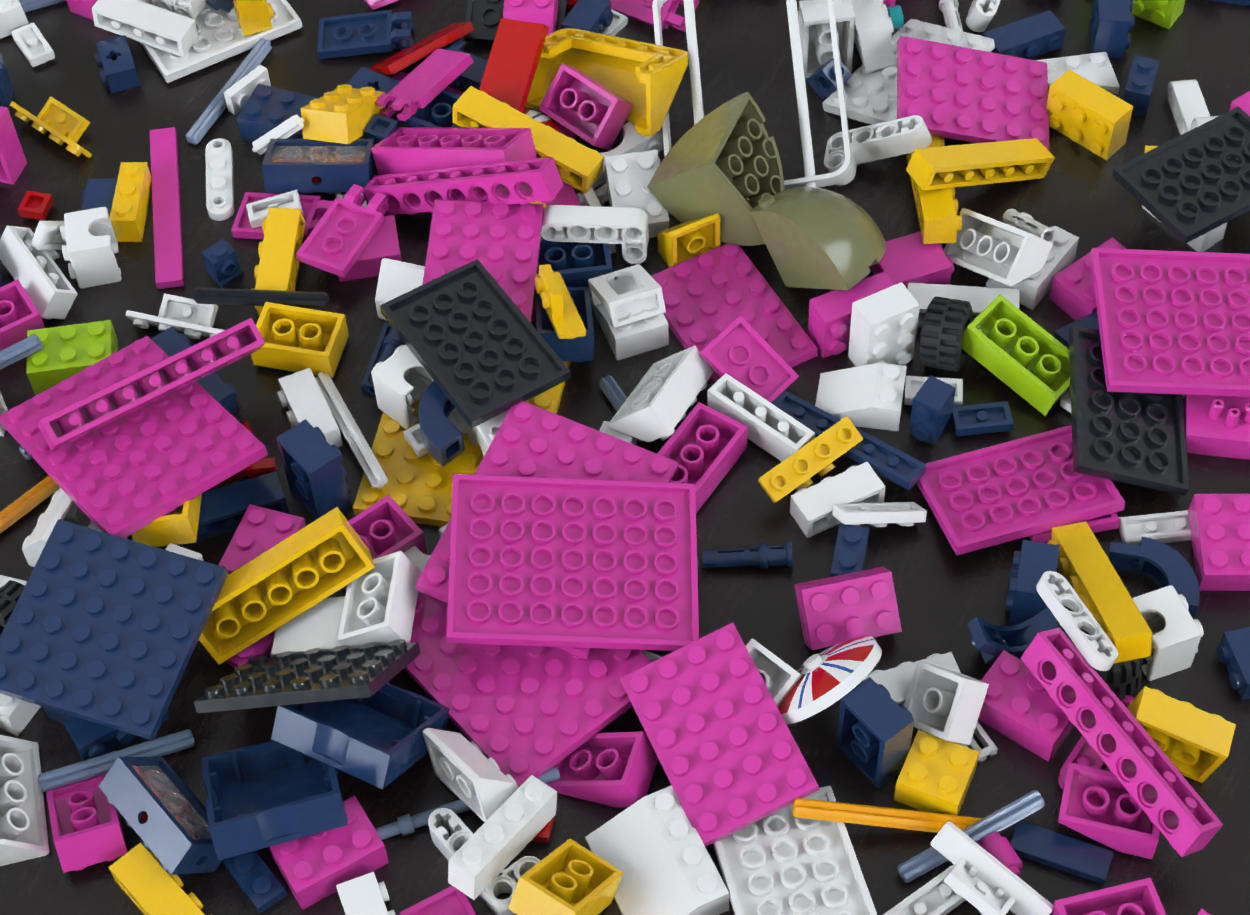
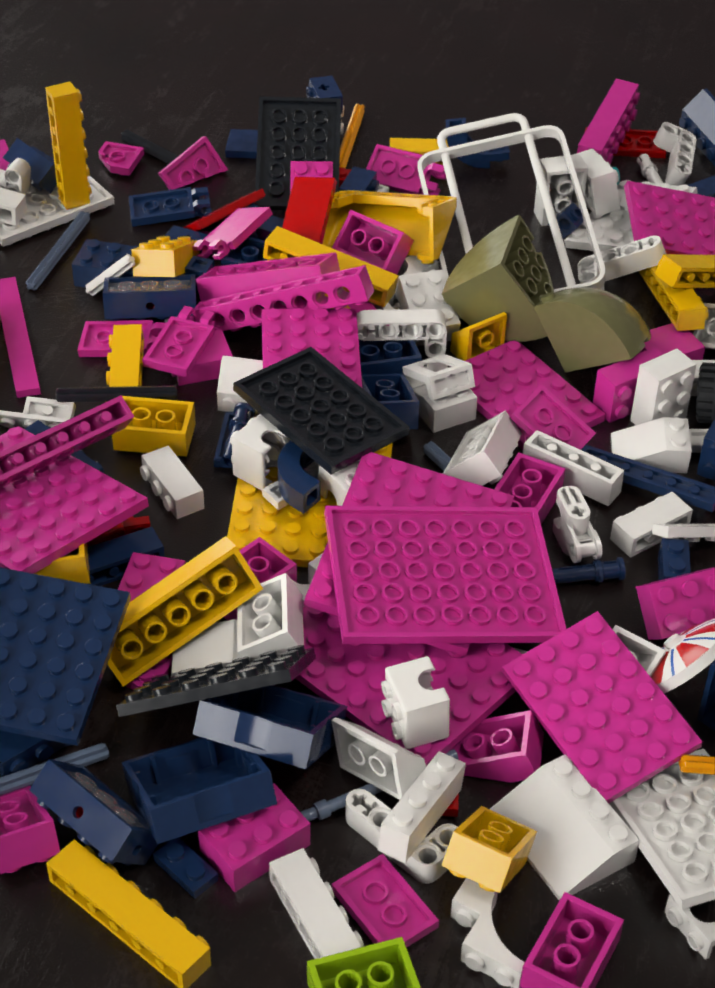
camera: 10 degrees left, 10 degrees down
(219, 179) = (60, 314): white plate -> none
(222, 263) = (74, 371): dark blue brick -> none
(240, 92) = (70, 248): white plate -> none
(259, 210) = (101, 332): white tile -> none
(314, 469) = (187, 517): dark blue brick -> none
(352, 432) = (217, 498): white axle -> none
(513, 718) = (416, 709): none -> white piece
(558, 304) = (380, 376): yellow bracket -> none
(744, 500) = (573, 527): none -> white piece
(810, 459) = (625, 492): yellow bracket -> none

